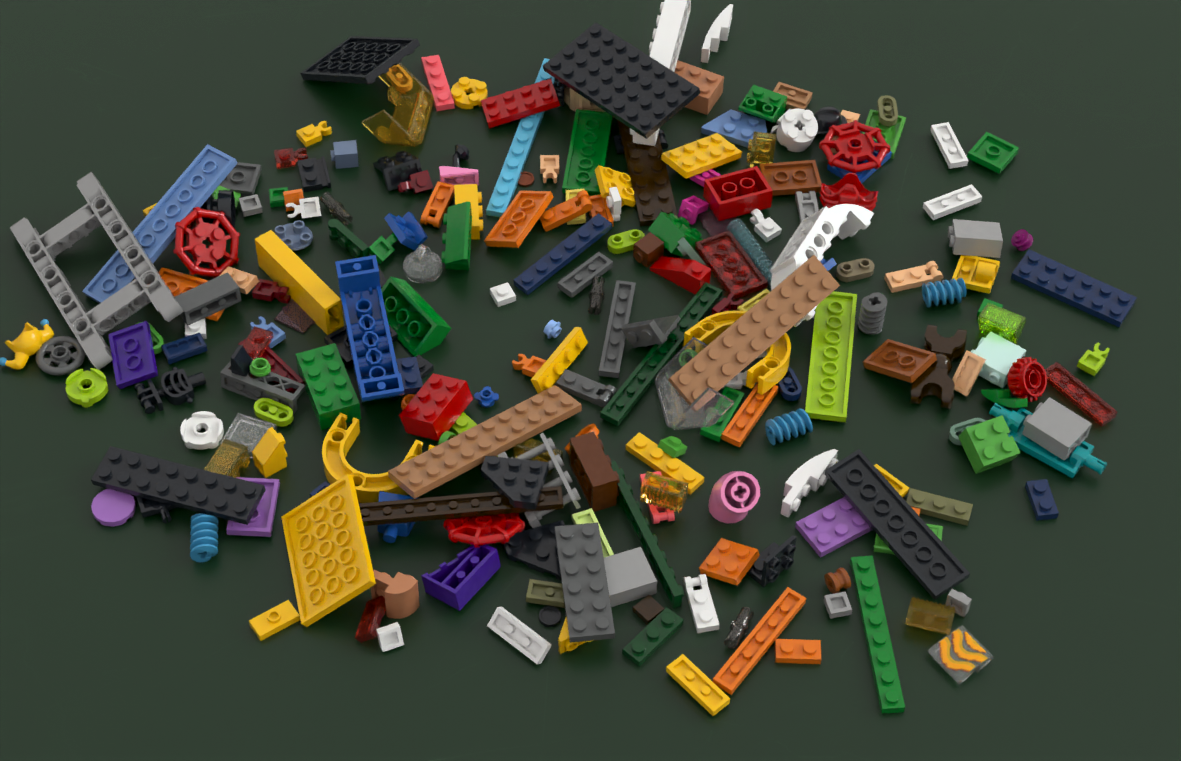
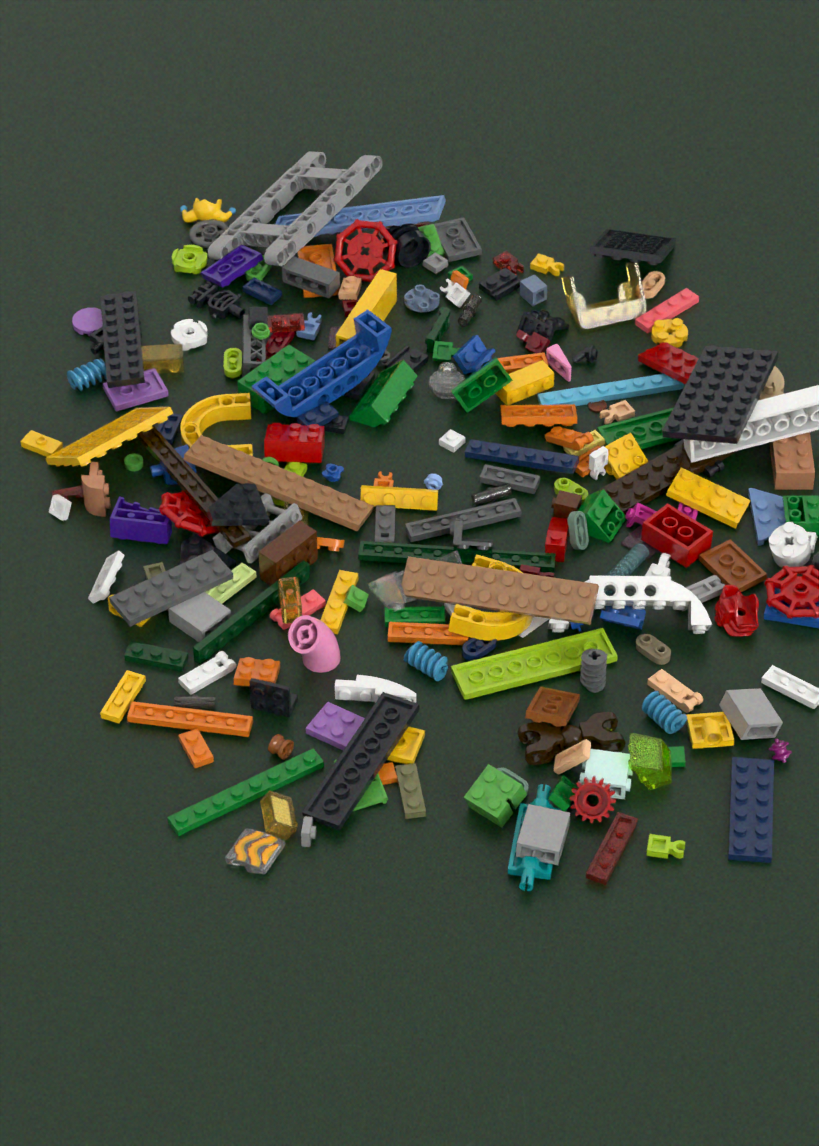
camera: 65 degrees right, 5 degrees down
(199, 326) = (288, 291): white plate -> none
(247, 431) = (202, 360): clear plate -> none
(270, 454) = (186, 375): yellow slope -> none
(647, 609) = (181, 642): dark brown tile -> none
(731, 264) = (594, 558): clear red plate -> none
(761, 148) = (740, 529): clear yellow bracket -> none
(837, 605) = (256, 755): light grey plate -> none
(1041, 499) = (466, 859): dark blue plate -> none

